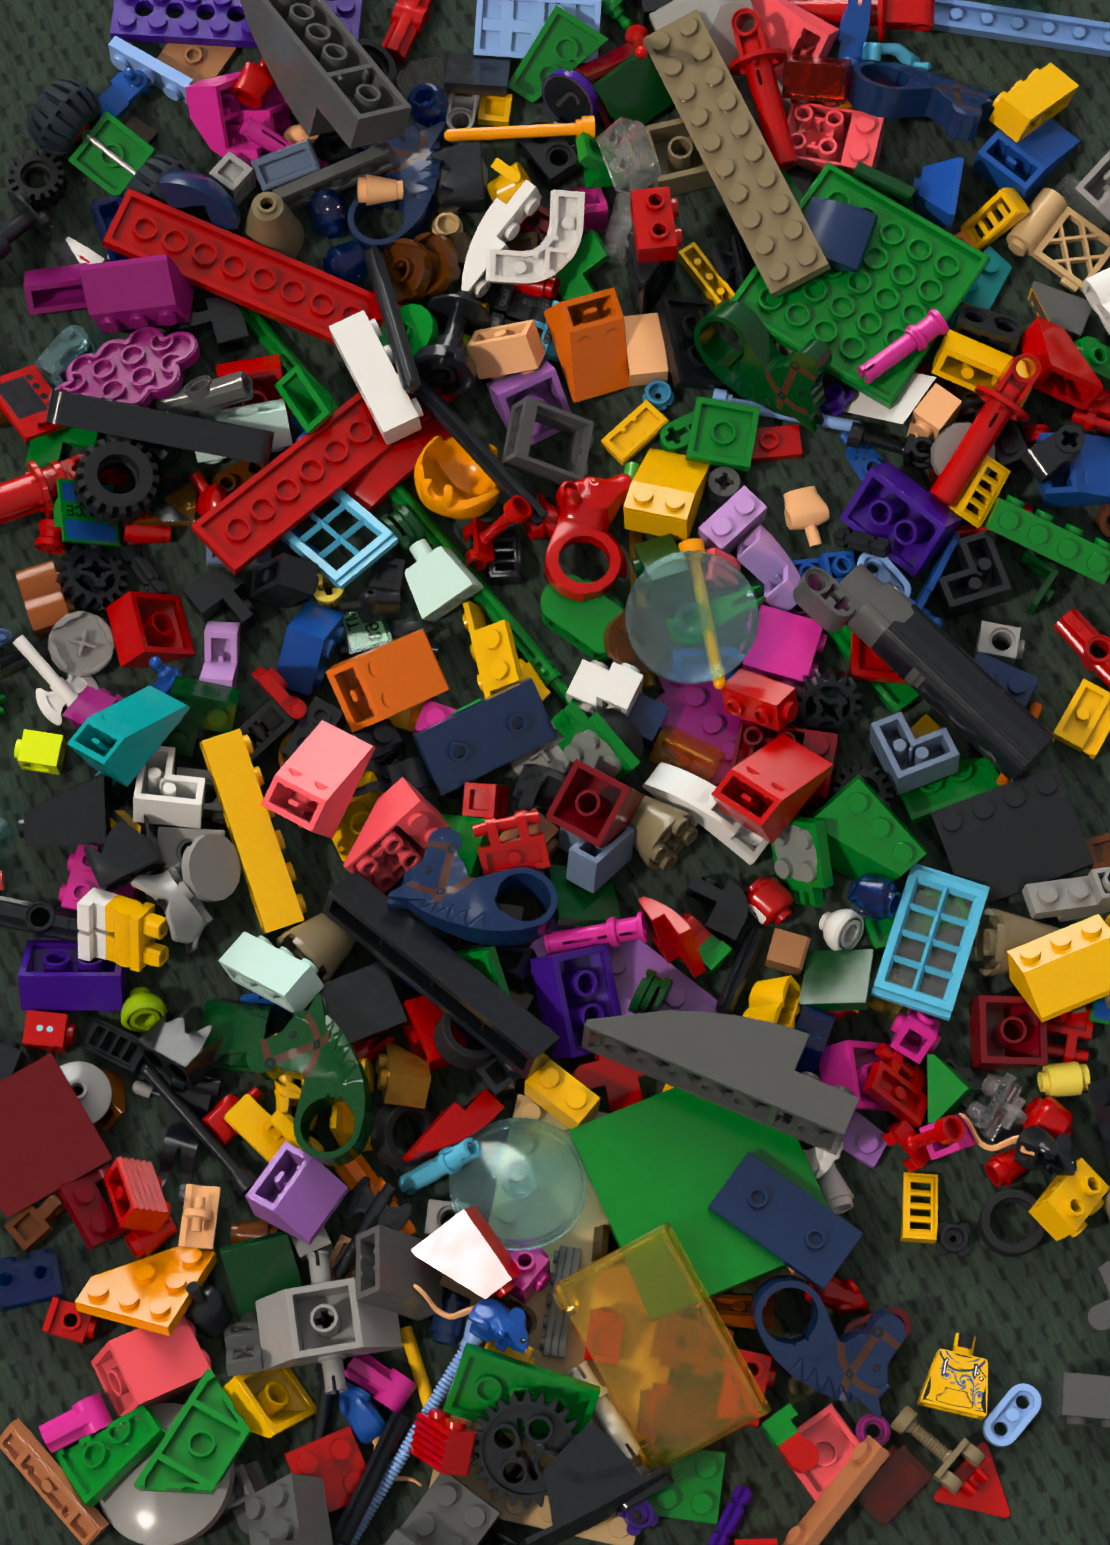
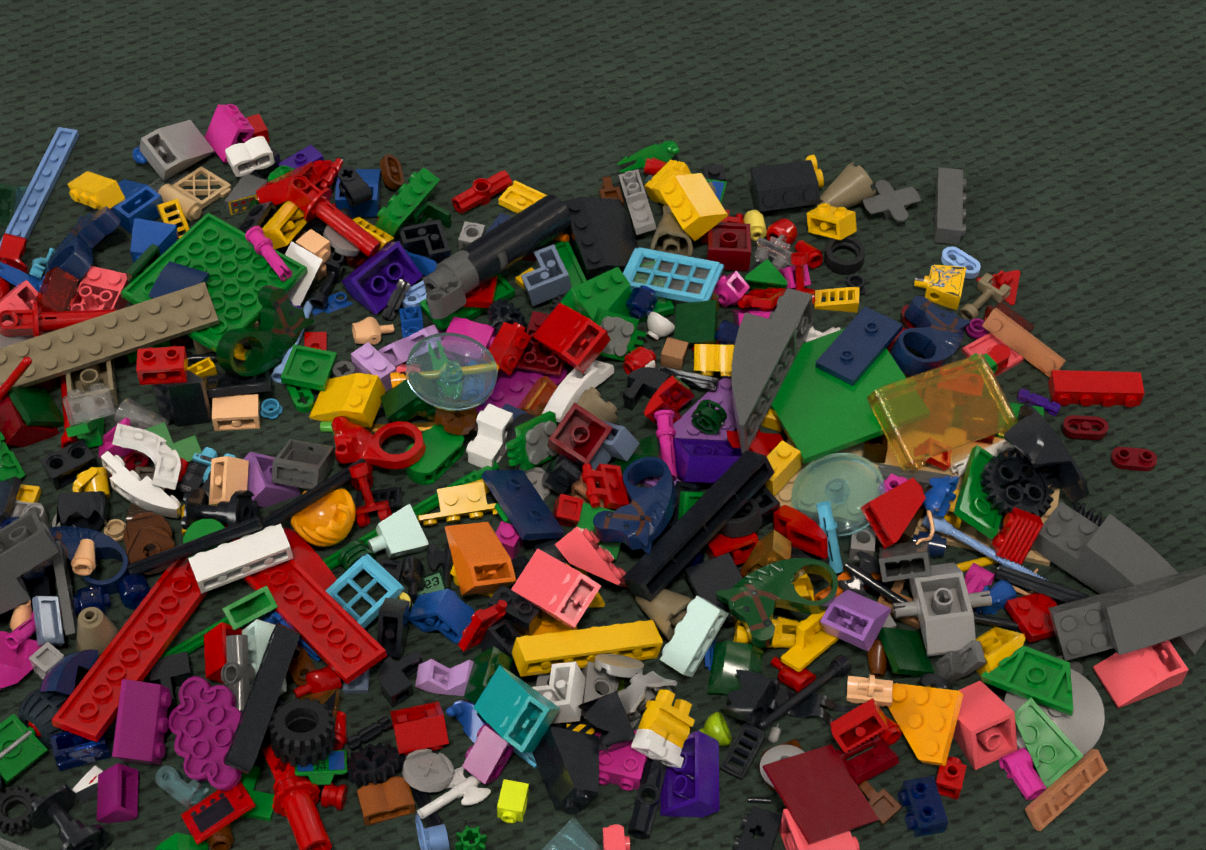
camera: 90 degrees left, 20 degrees down
(48, 1032) = (734, 794): red brick -> none
(569, 96) = (31, 443): black tile -> none
(585, 124) = (59, 435): light orange piece -> none
(590, 343) = (227, 435): orange slope -> none
(634, 432) = (297, 422): yellow plate -> none
(1036, 1149) = (803, 230): black animal -> none

